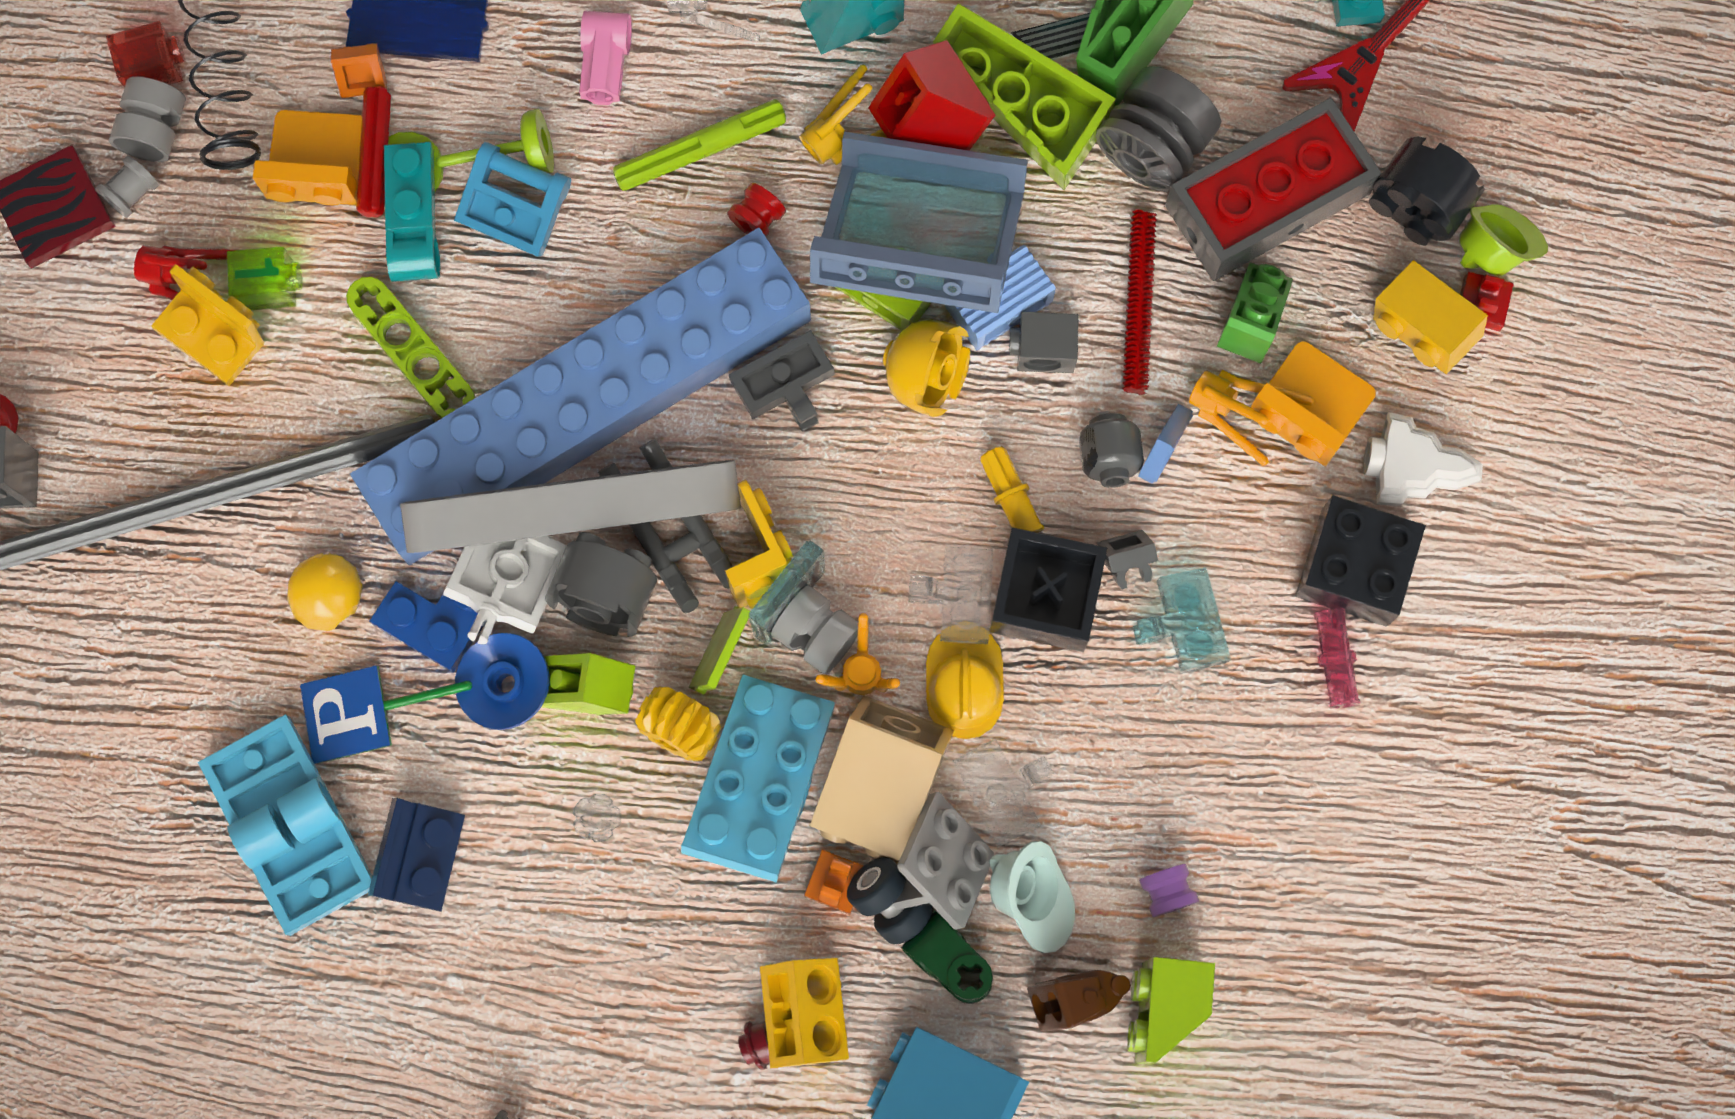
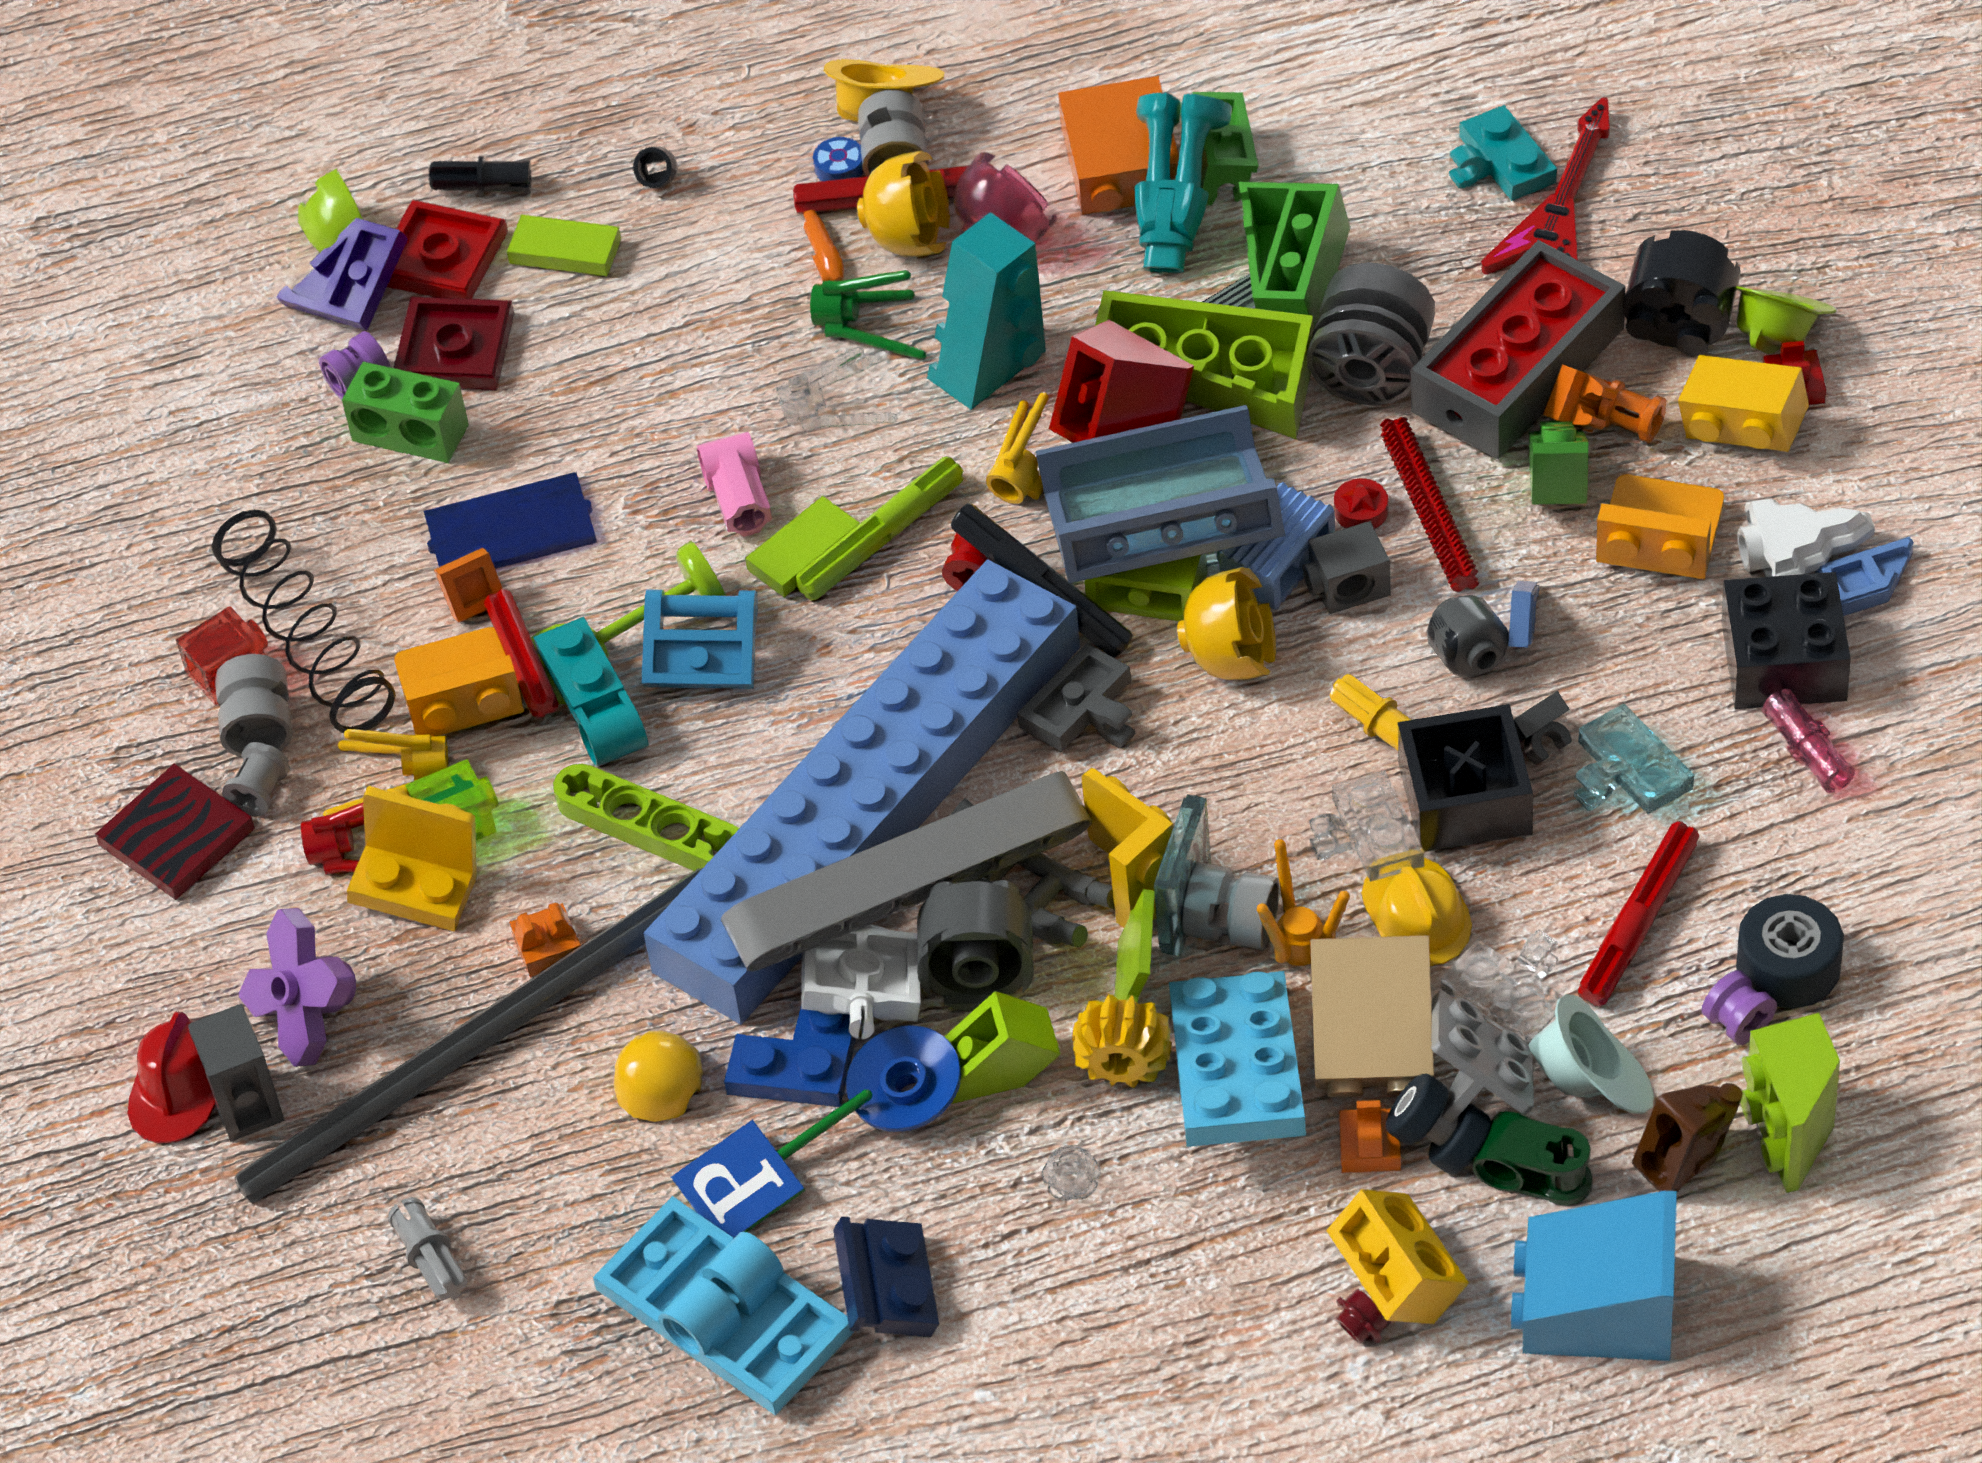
camera: 15 degrees left, 25 degrees down
(80, 405) = (298, 987): none -> medium lavender plant
(89, 679) = (428, 1249): none -> light grey axle
(258, 217) = (419, 754): none -> yellow plant
(290, 427) = (544, 937): none -> orange tile
(632, 134) = (799, 544): none -> lime tile
(796, 257) = (1014, 556): none -> black axle
(1085, 280) = (1361, 502): none -> red tile
(1132, 764) = (1638, 914): none -> red axle
(1215, 395) = (1557, 549): light orange plant -> none
(1222, 869) = (1791, 949): none -> black wheel
(1298, 259) = (1578, 399): none -> orange tile
(1338, 283) = (1650, 412): none -> orange bush
(1454, 518) = (1870, 575): none -> medium blue tile

